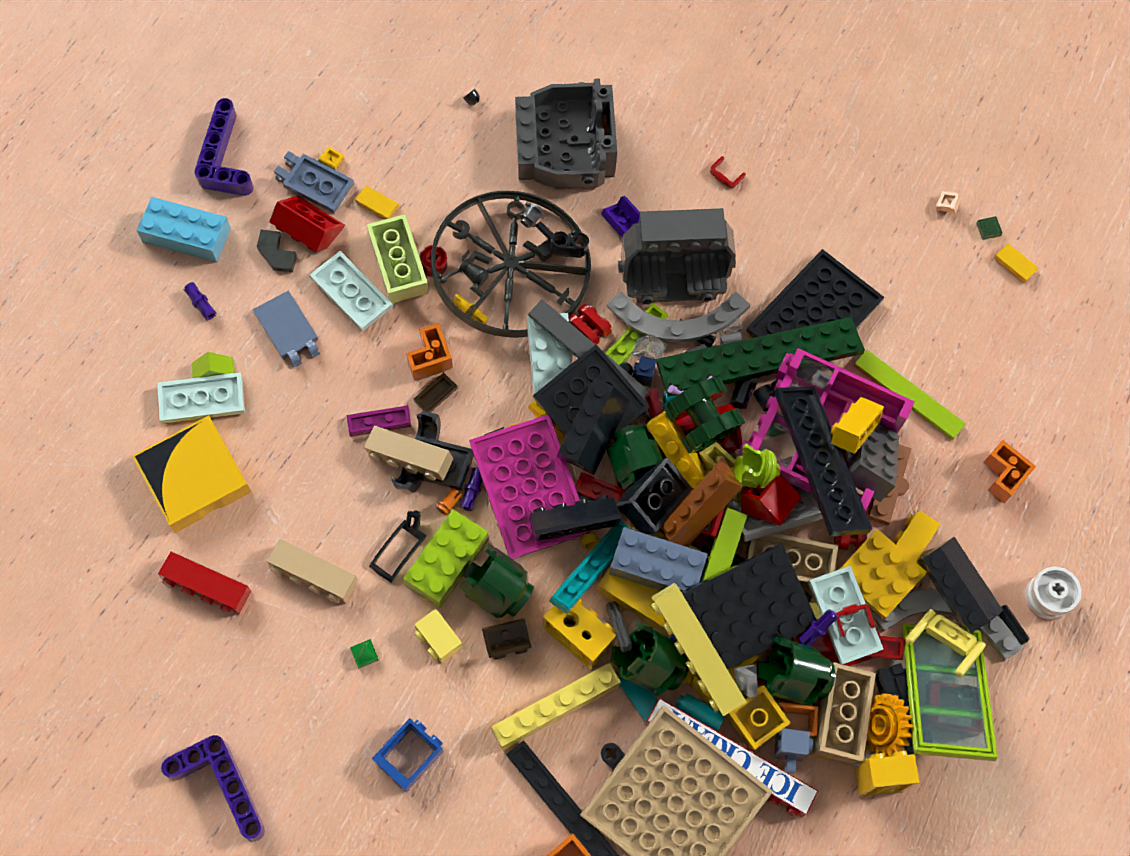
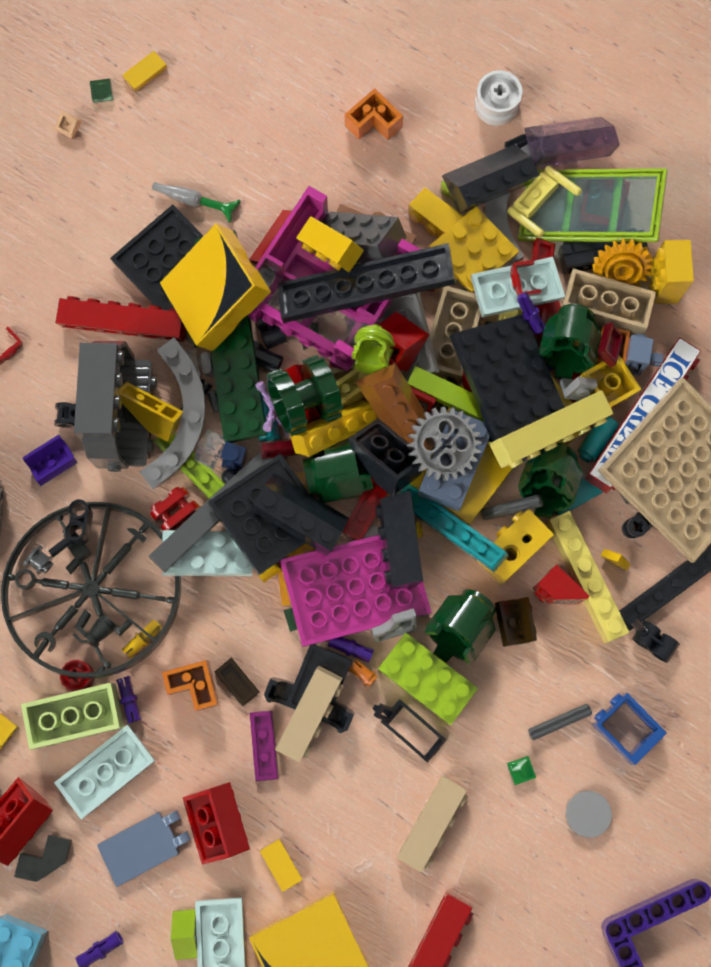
camera: 80 degrees left, 10 degrees up
(273, 443) = (281, 865): none -> yellow tile
(309, 385) = (216, 823): none -> red slope
(324, 720) = (588, 814): none -> light grey tile
(412, 689) = (560, 721): none -> dark grey axle
(415, 304) = (128, 699): none -> dark purple pin
(438, 636) = (508, 692): light yellow brick -> none
(495, 525) = (396, 626): none -> light grey tile
(499, 776) = (649, 638): none -> black beam
(542, 674) = (559, 588): none -> red slope
(576, 738) = (616, 559): none -> yellow tile
(677, 292) = (150, 411): none -> yellow slope
(681, 526) = (430, 429): none -> light grey gear
(763, 264) = (120, 319): none -> red brick
(796, 711) = (610, 344): none -> dark red tile
(800, 329) = (214, 287): none -> yellow tile
(894, 317) = (195, 198): none -> light grey piece
(924, 405) = (281, 196): lime tile -> none
(1019, 670) = (571, 141): none -> clear purple slope

